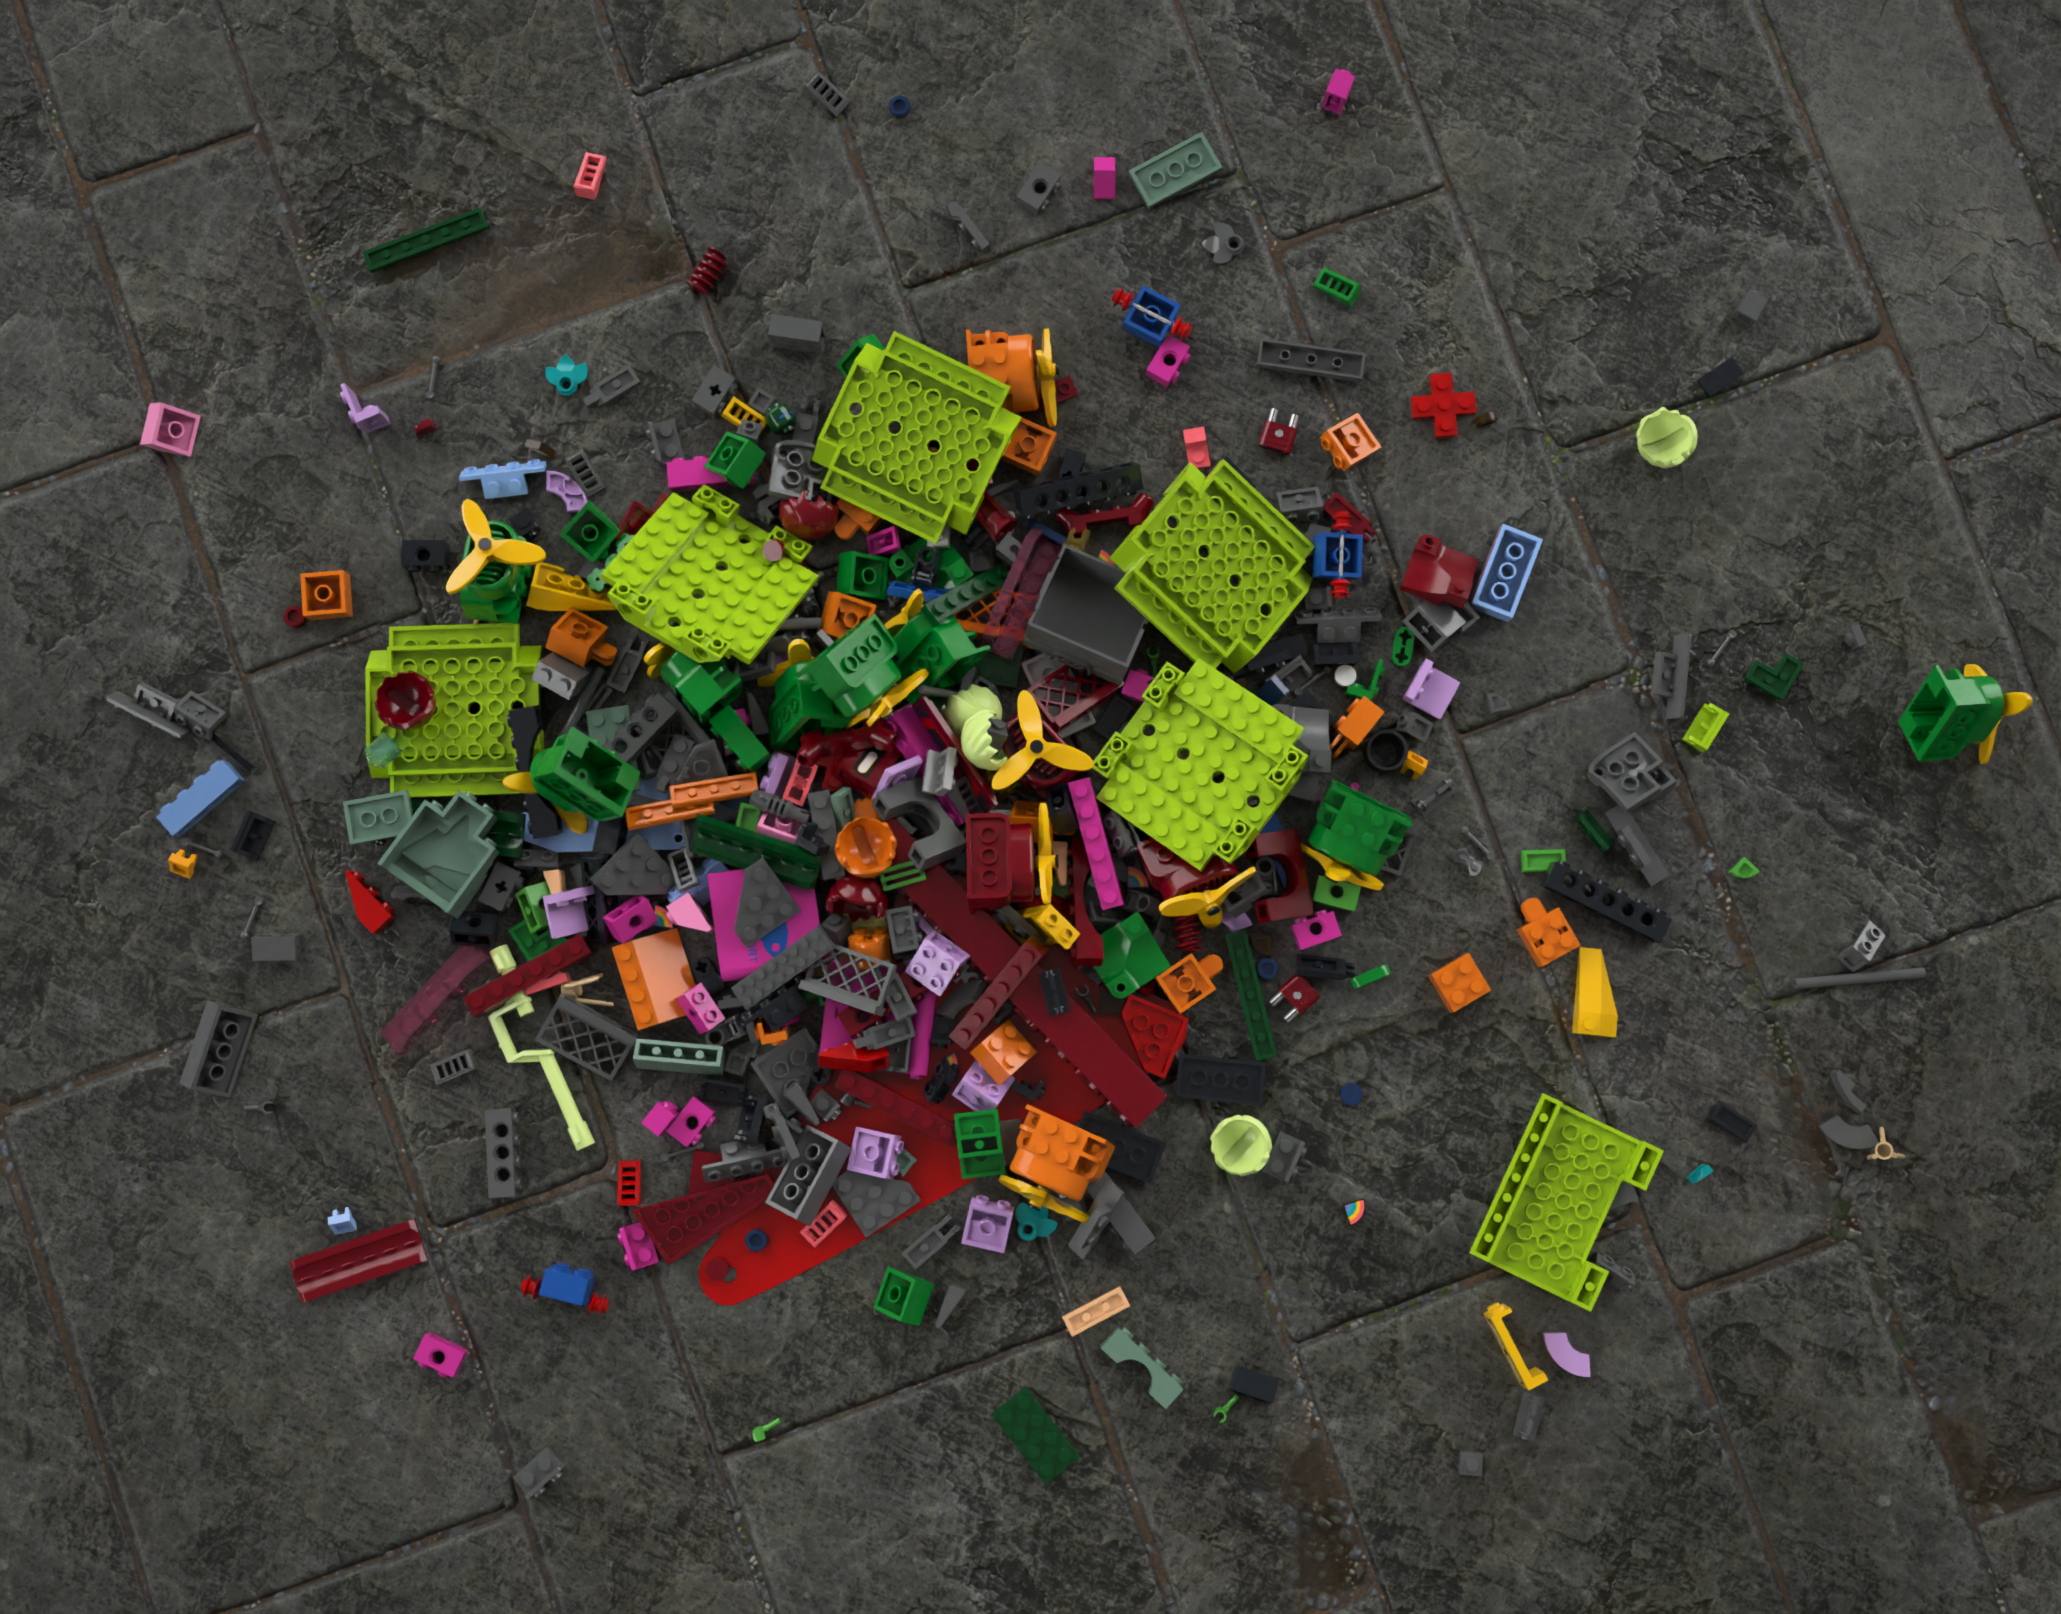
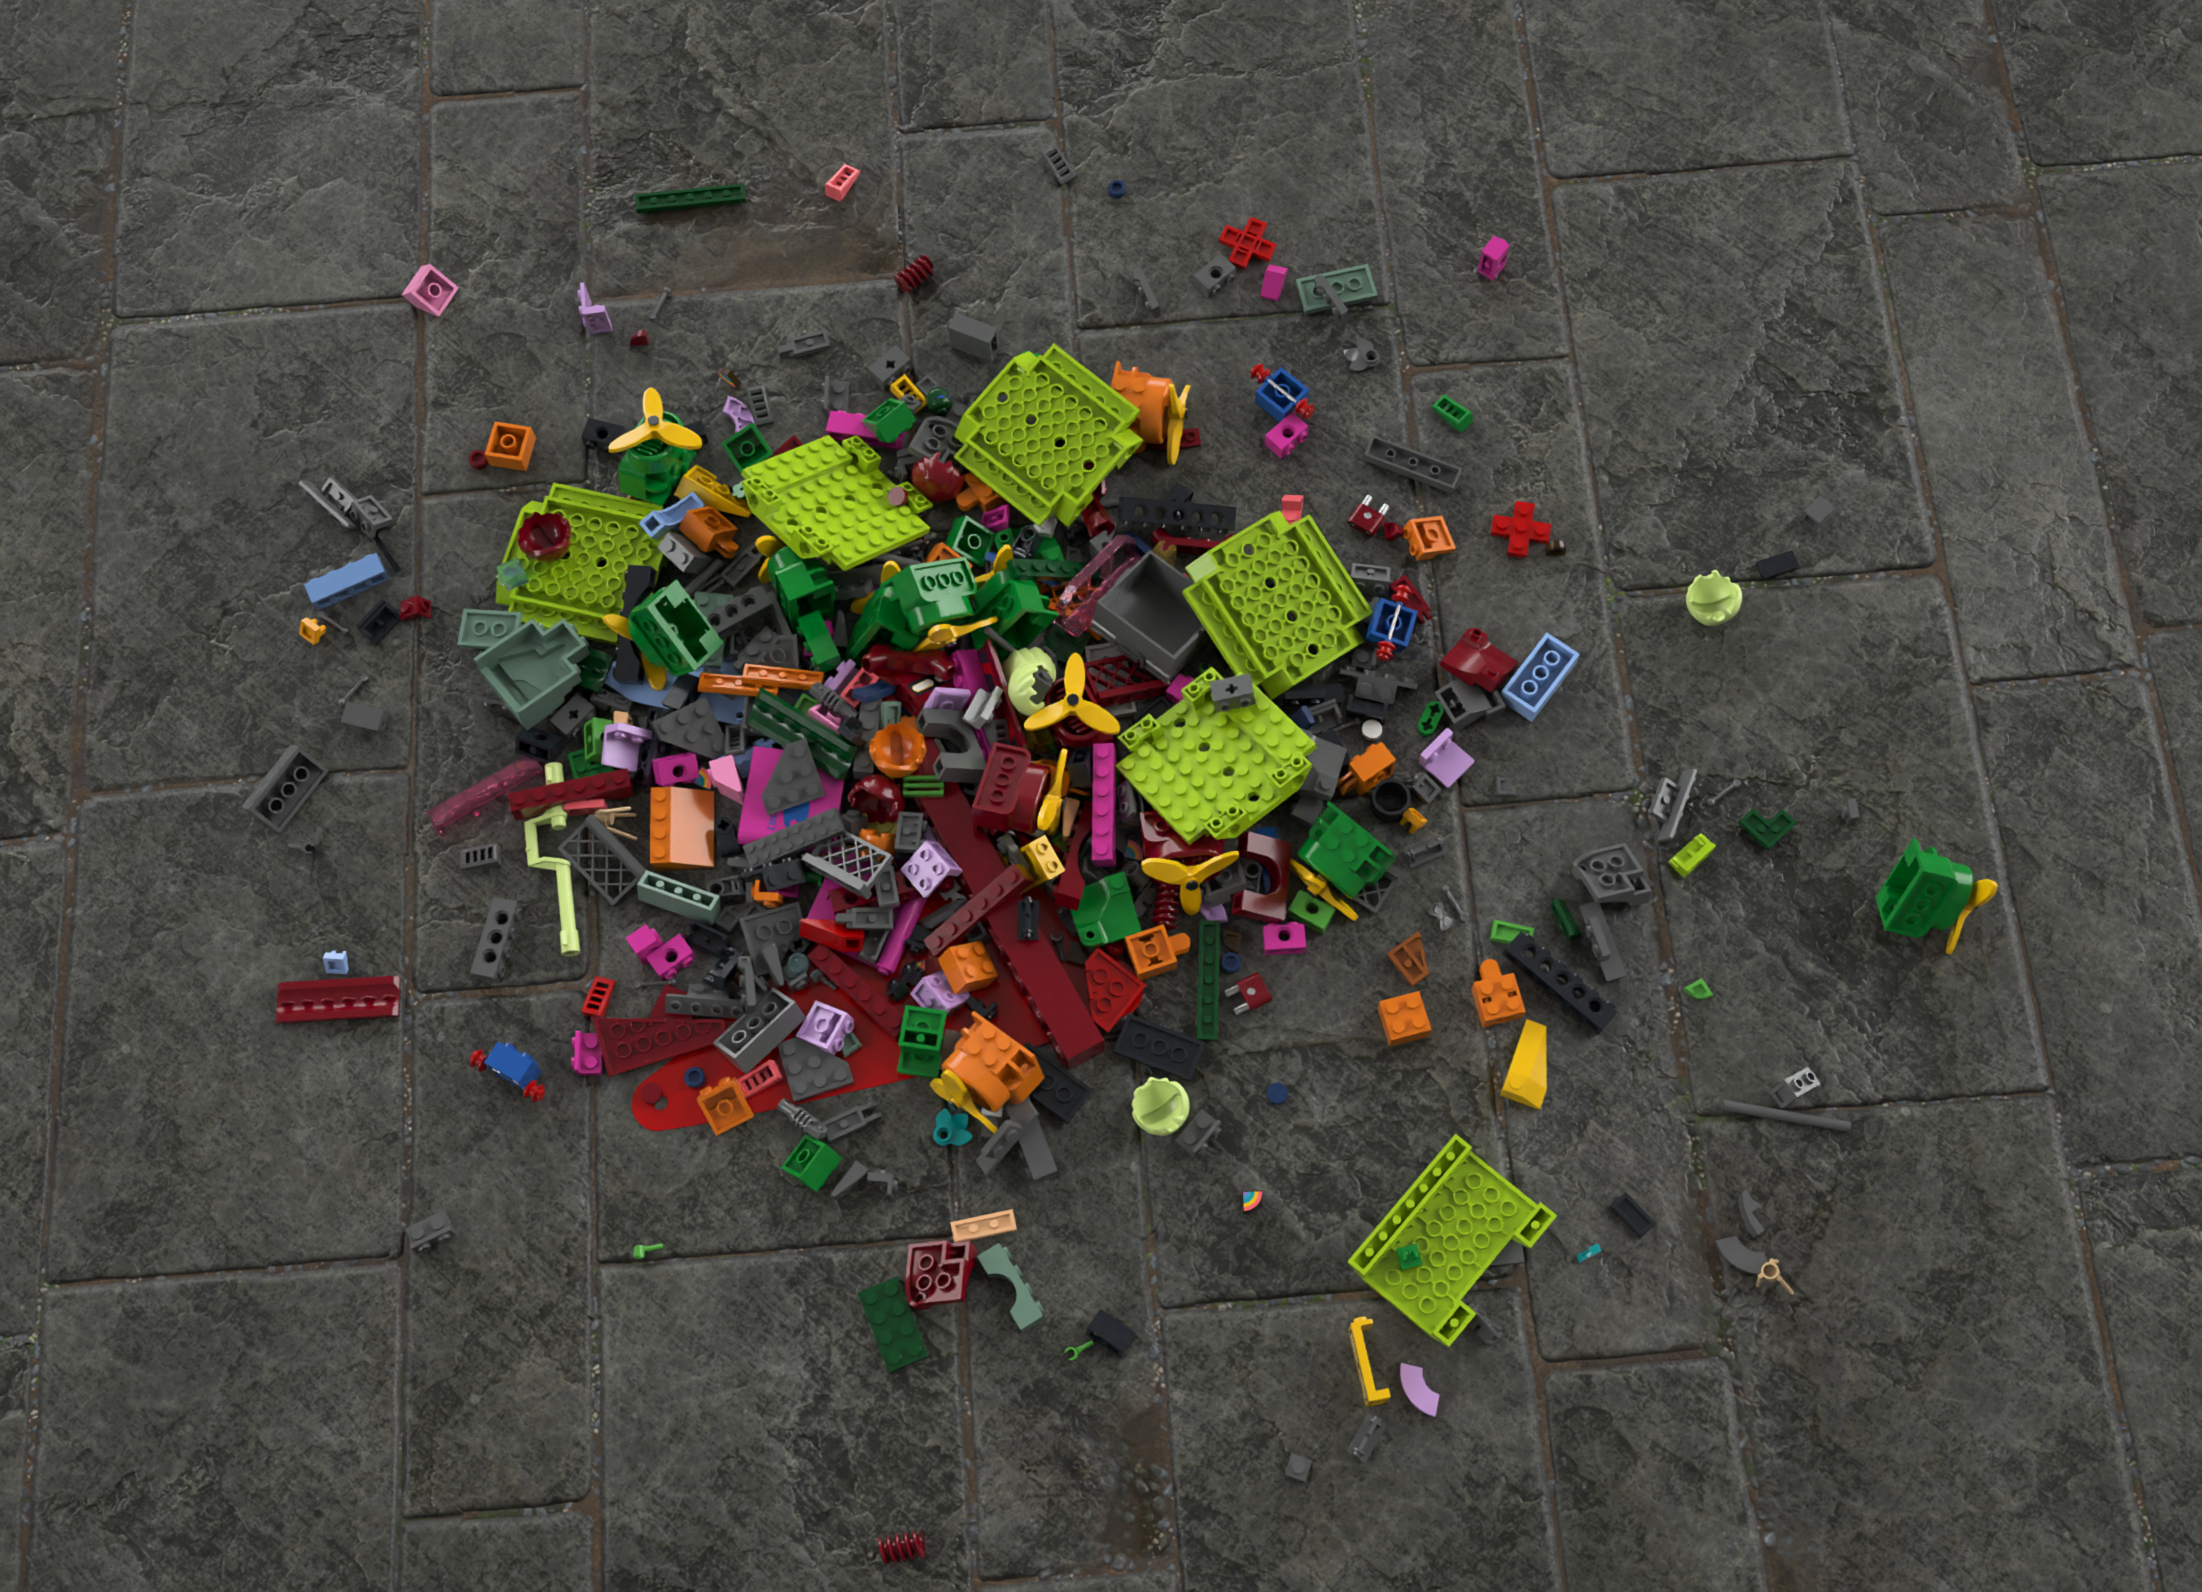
camera: 20 degrees right, 15 degrees down
(286, 809) = (415, 607): none -> dark red bracket
(368, 907) = (454, 705): red slope -> none
(453, 1355) = (390, 1107): dark pink brick -> none
(503, 480) = (689, 395): light blue bracket -> none
(534, 636) = (660, 522): none -> light blue arch
(566, 373) = (770, 325): teal plate -> none
(700, 1008) = (711, 860): dark pink brick -> none
(797, 1262) = (724, 1105): none -> orange plate
(818, 785) = (873, 691): none -> dark blue tile
(826, 1094) = (798, 963): none -> clear light blue tile
(882, 1254) = (803, 1119): none -> dark grey hinge
(978, 1292) = (881, 1178): none -> dark grey bracket
(988, 1224) = (907, 1118): lavender plate -> none
(1028, 449) = (1144, 472): orange brick -> none
(1063, 138) = (1247, 243): none -> red plate
(1068, 1374) = (938, 1272): none -> dark red slope
(1173, 185) = (1330, 297): none -> dark grey hinge
(1189, 690) = (1232, 693): none -> dark grey brick
(1309, 443) = (1392, 531): none -> dark red tile
(1324, 967) = (1283, 973): black hinge -> none
(1359, 691) = (1393, 746): green bracket -> none
(1370, 976) = (1323, 992): green beam -> none
(1448, 916) = (1410, 959): none -> dark orange wing
(1527, 1229) = (1409, 1257): none -> green tile

